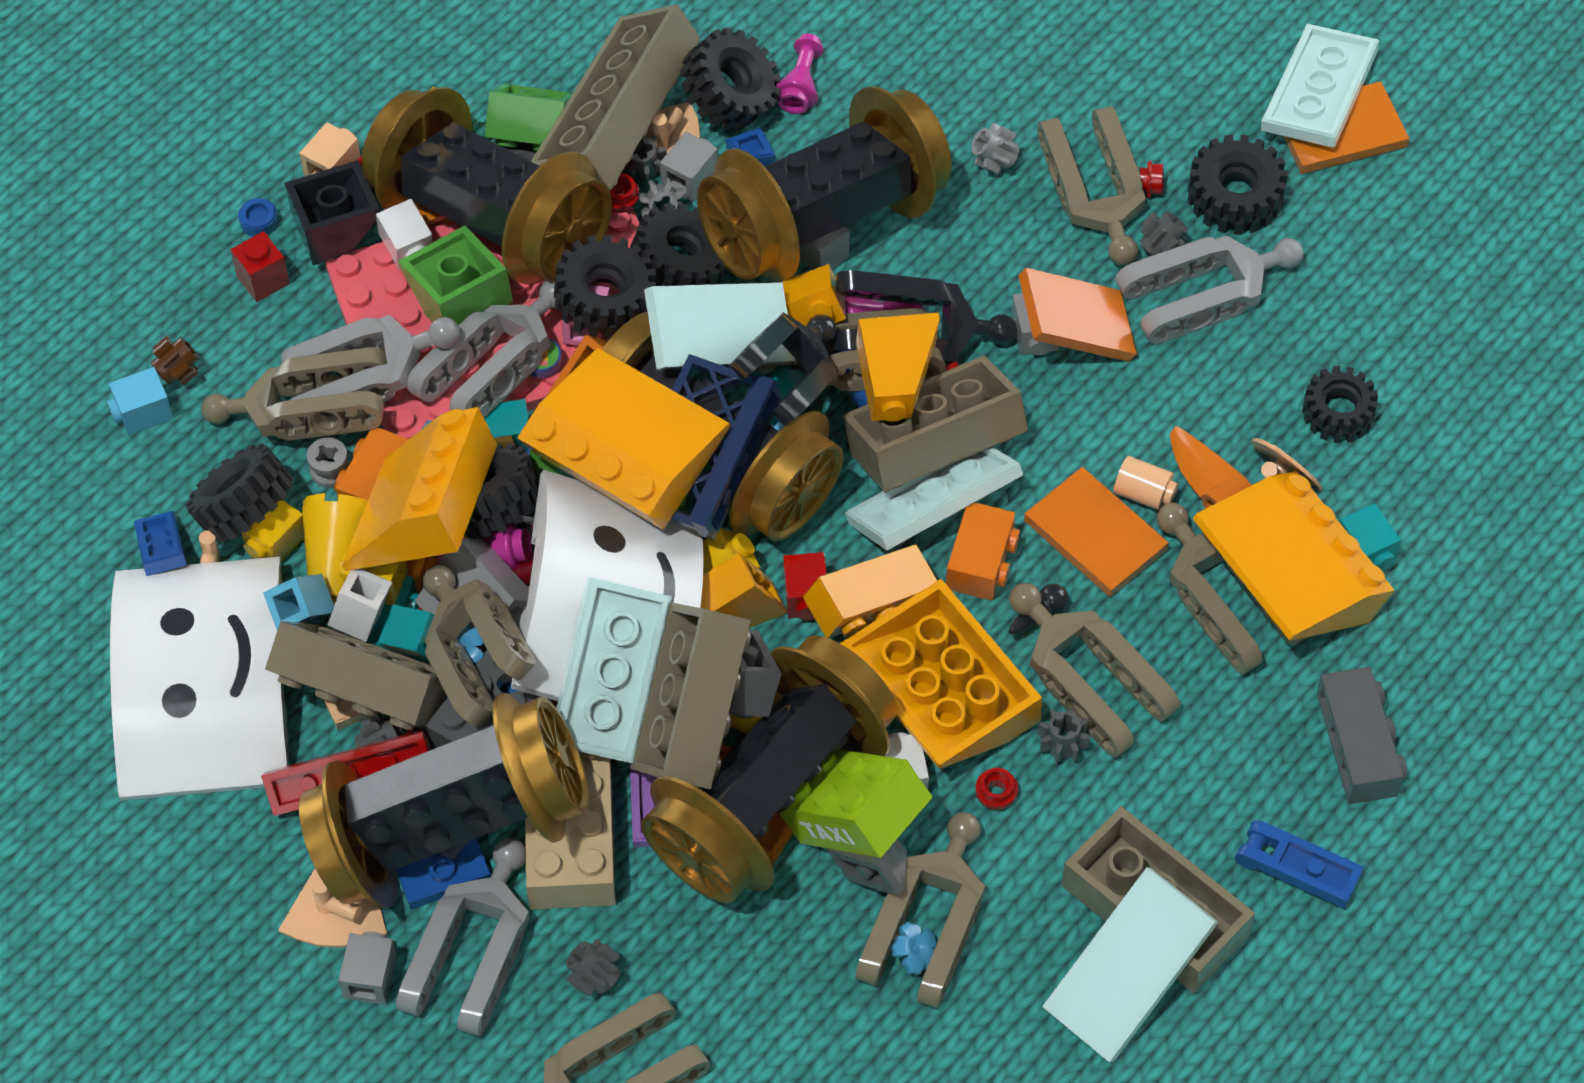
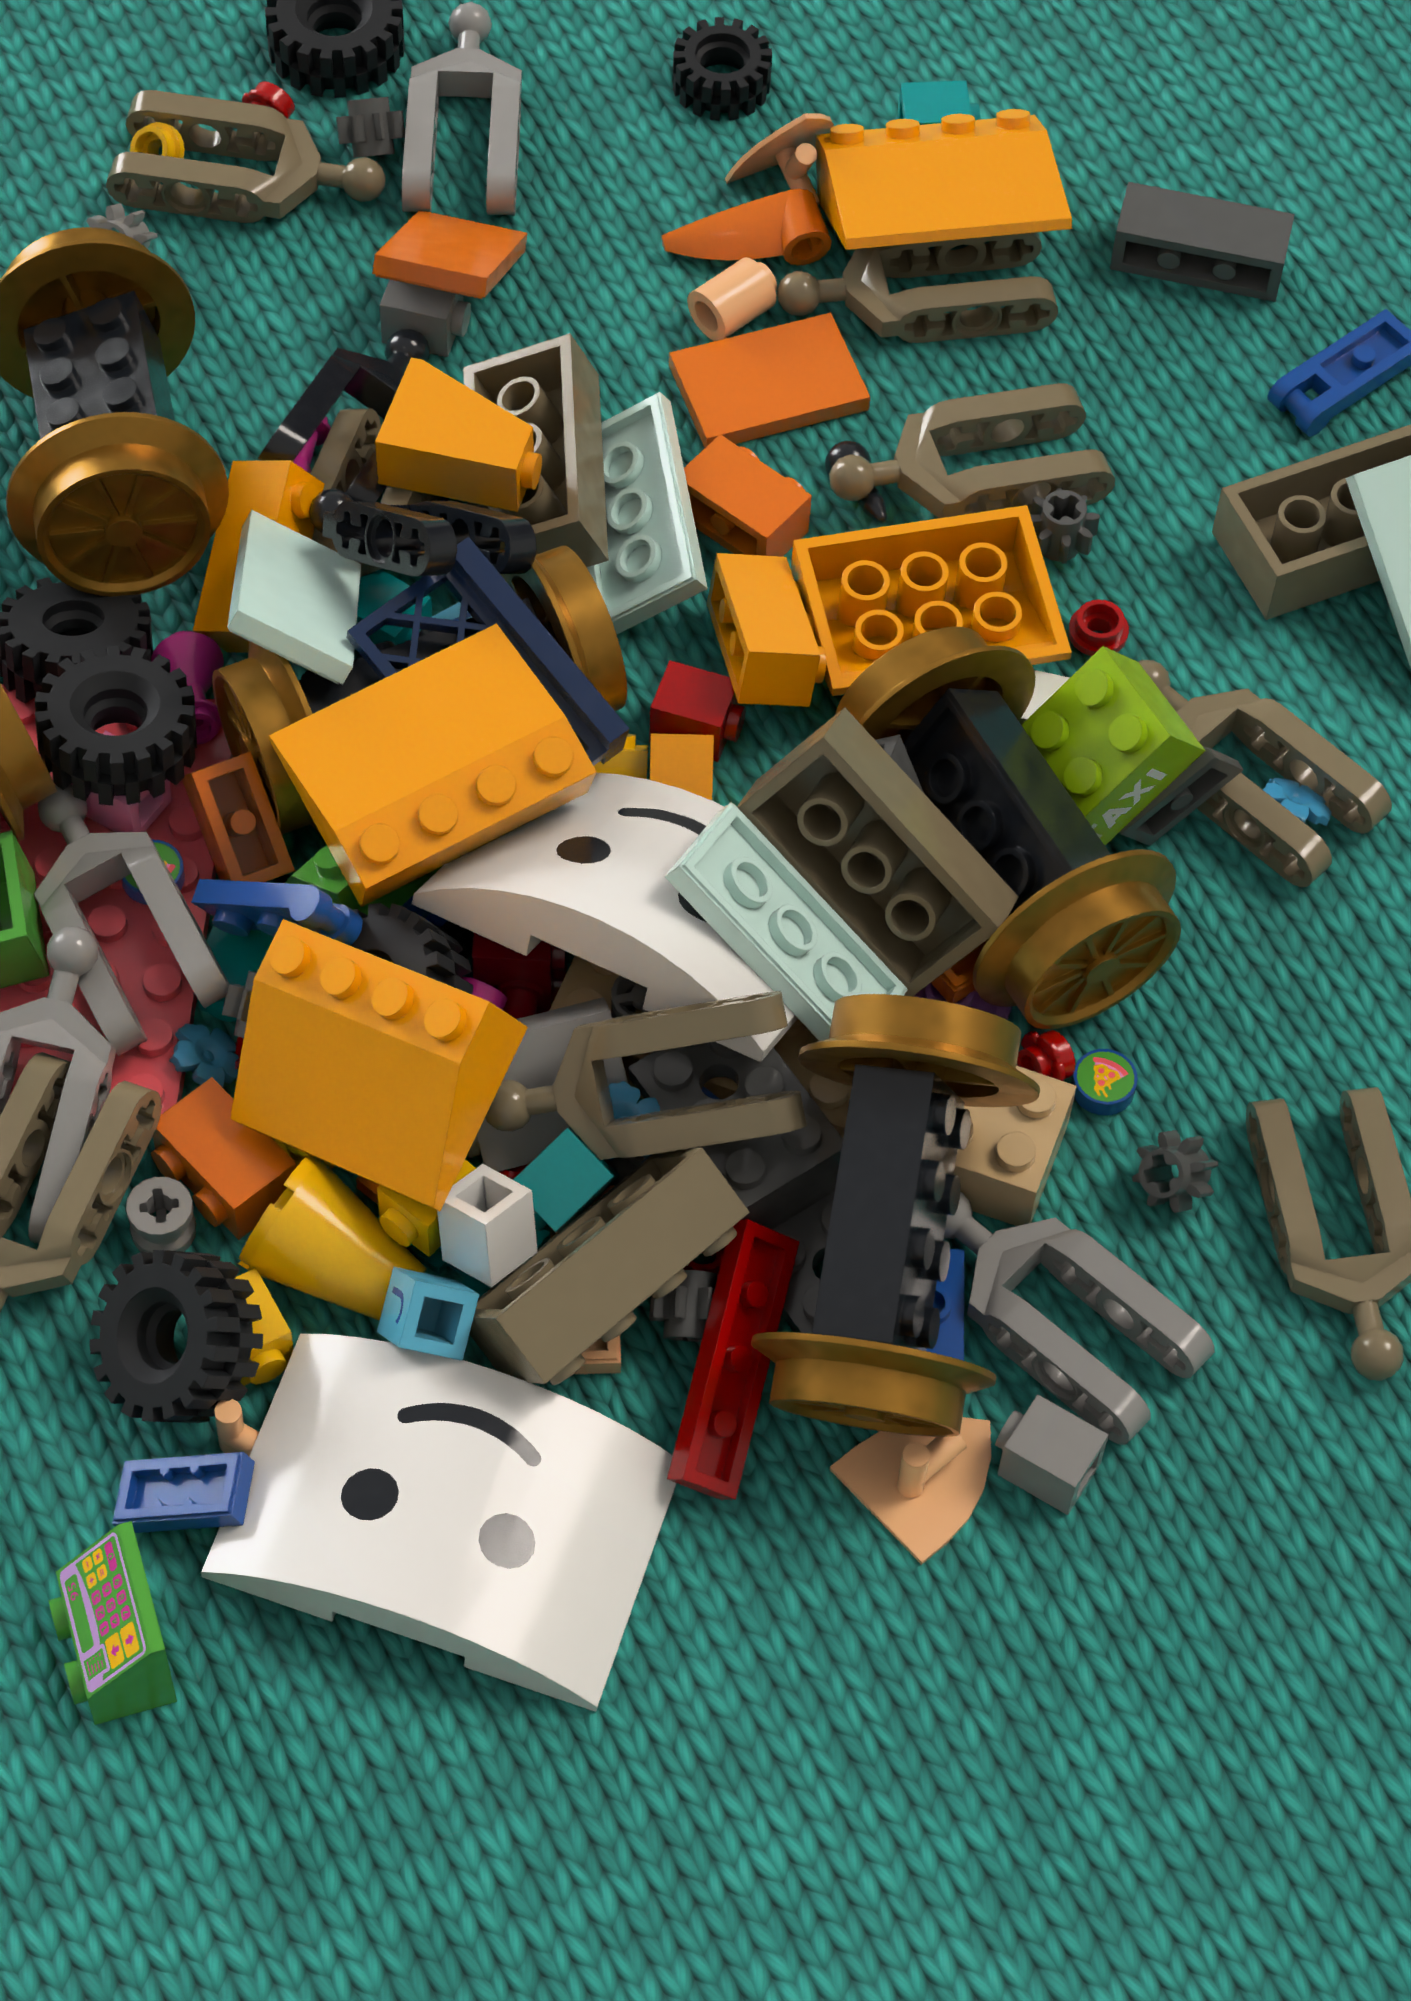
camera: 70 degrees left, 0 degrees up
(65, 548) = (113, 1629): none -> bright green slope
(510, 414) = (263, 906): none -> blue plate
(644, 869) = (1047, 1054): none -> red plate
(649, 911) = (1104, 1082): none -> tile
(1082, 137) = (156, 134): none -> yellow plate

